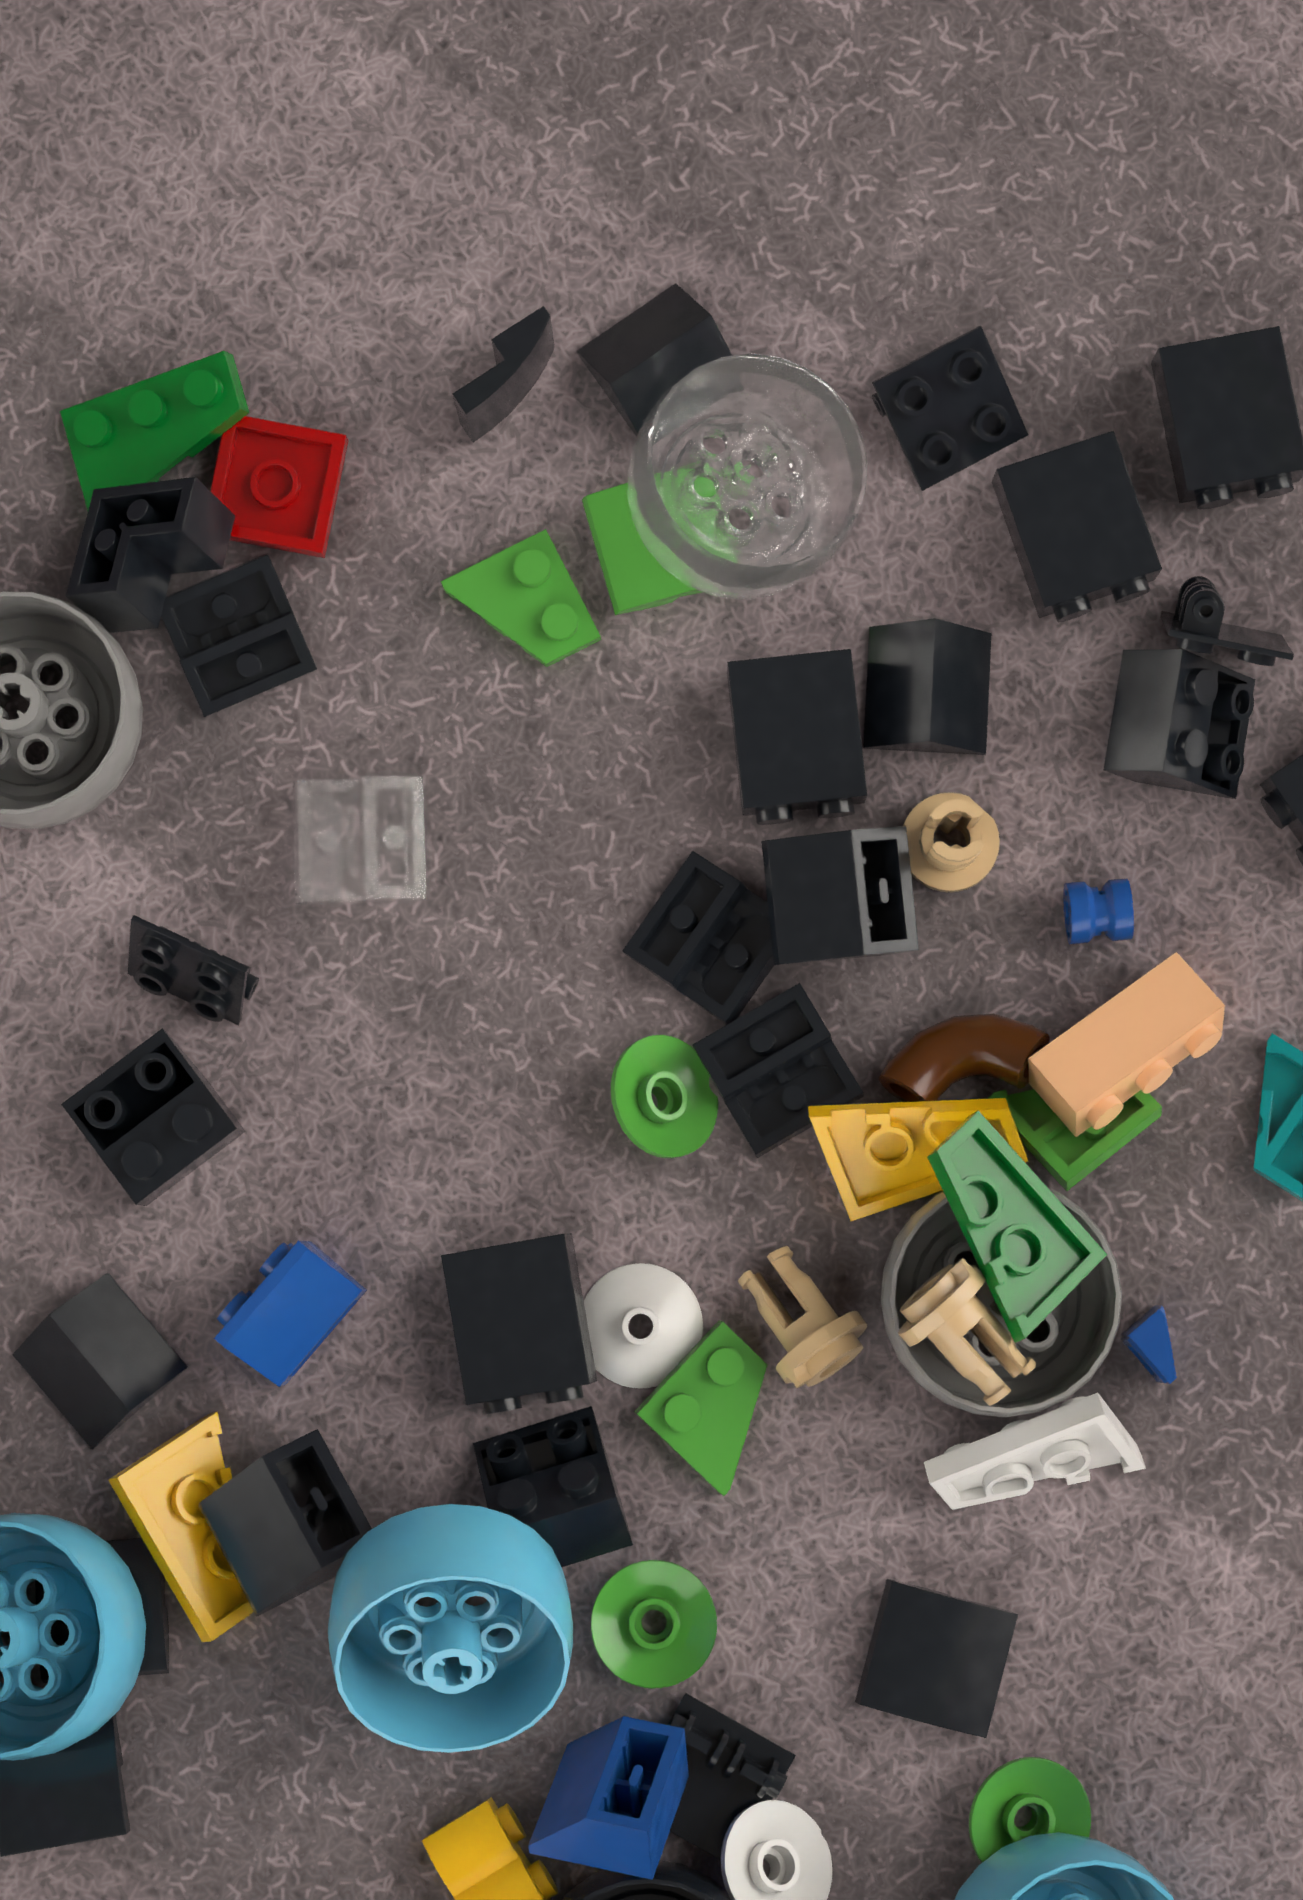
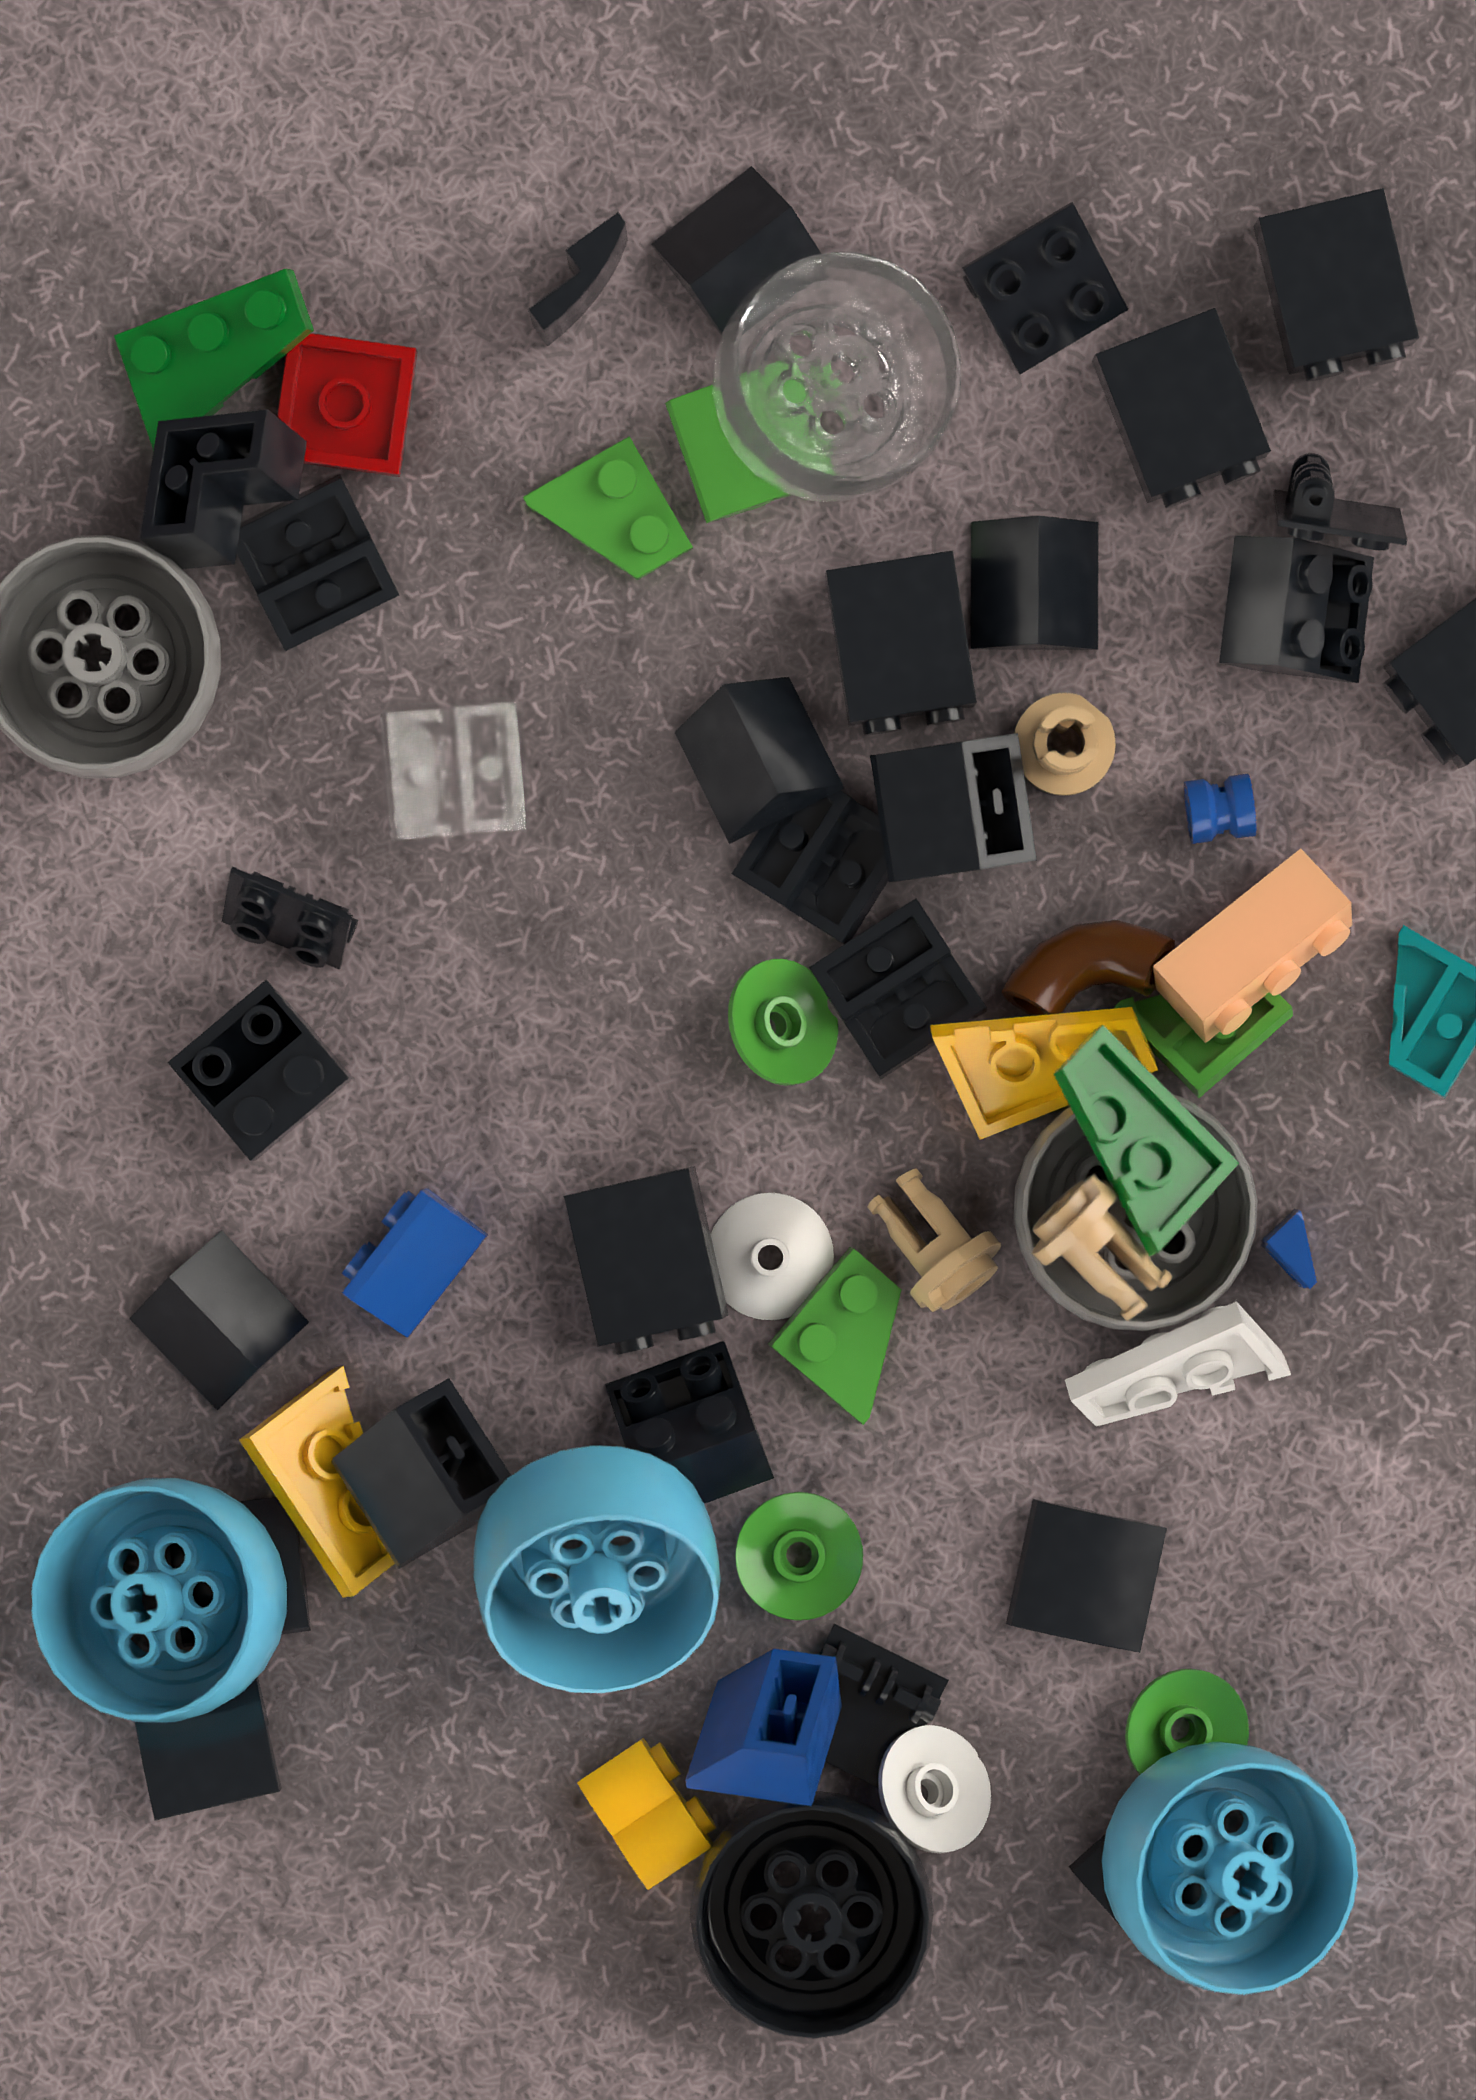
camera: 10 degrees left, 5 degrees up
(652, 837) = (756, 755): none -> black slope

